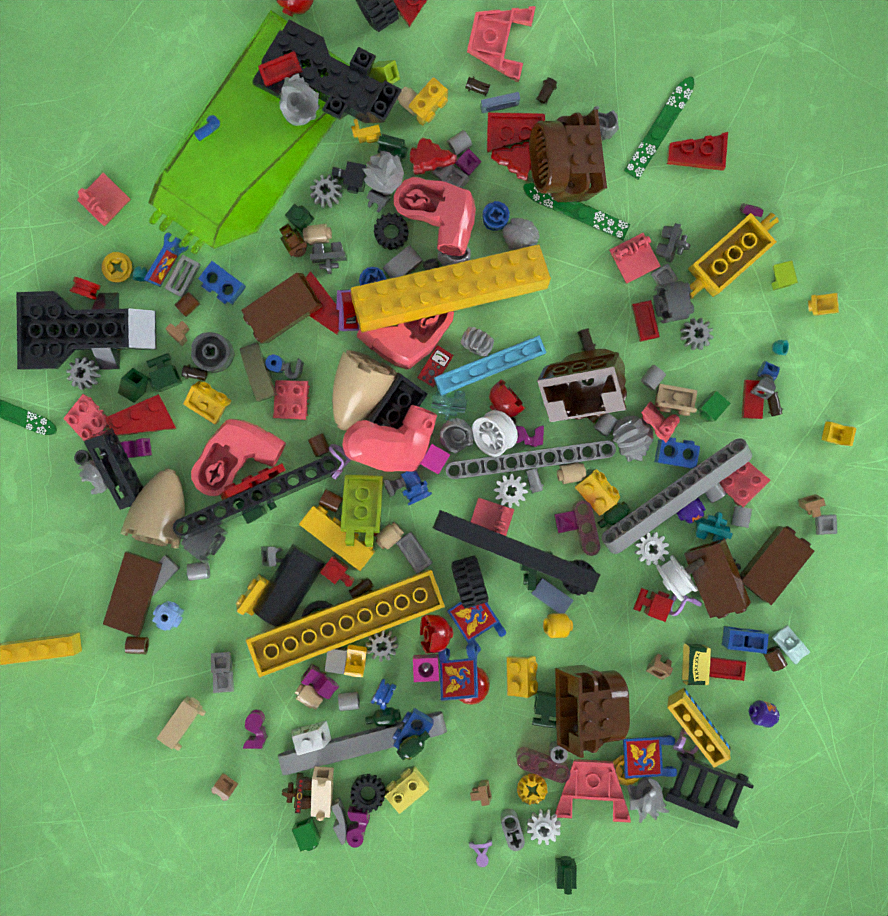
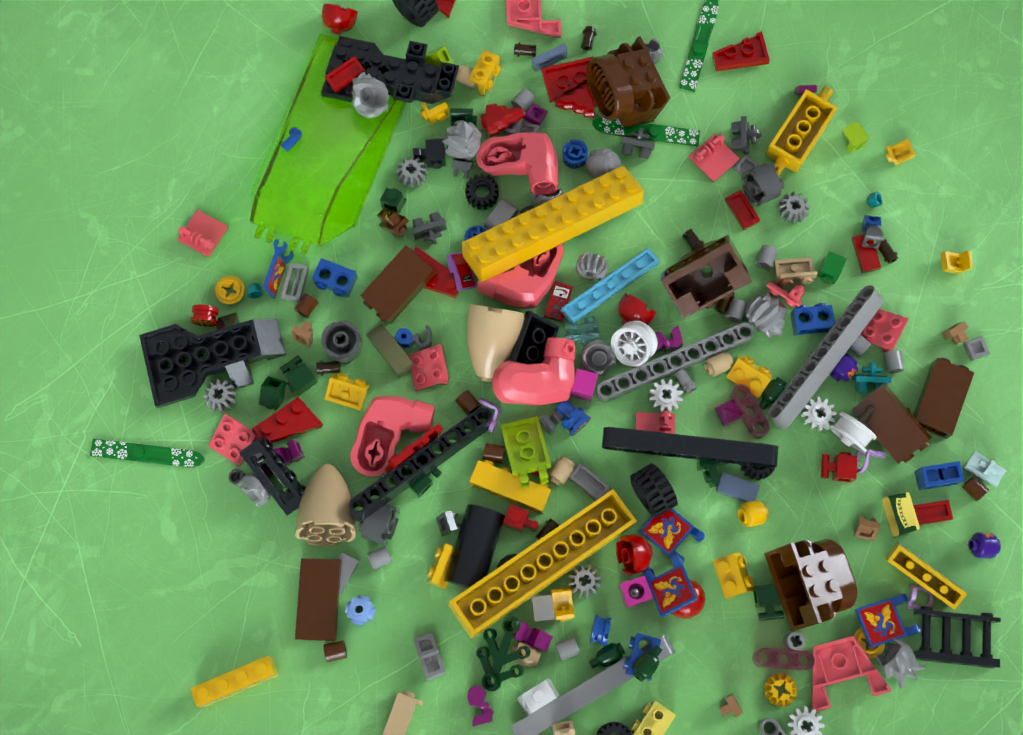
camera: 20 degrees left, 15 degrees down
(273, 708) = (499, 655): none -> dark green plant
(317, 234) = (414, 210): tan brick -> none
(554, 220) = (629, 144): none -> dark grey hips

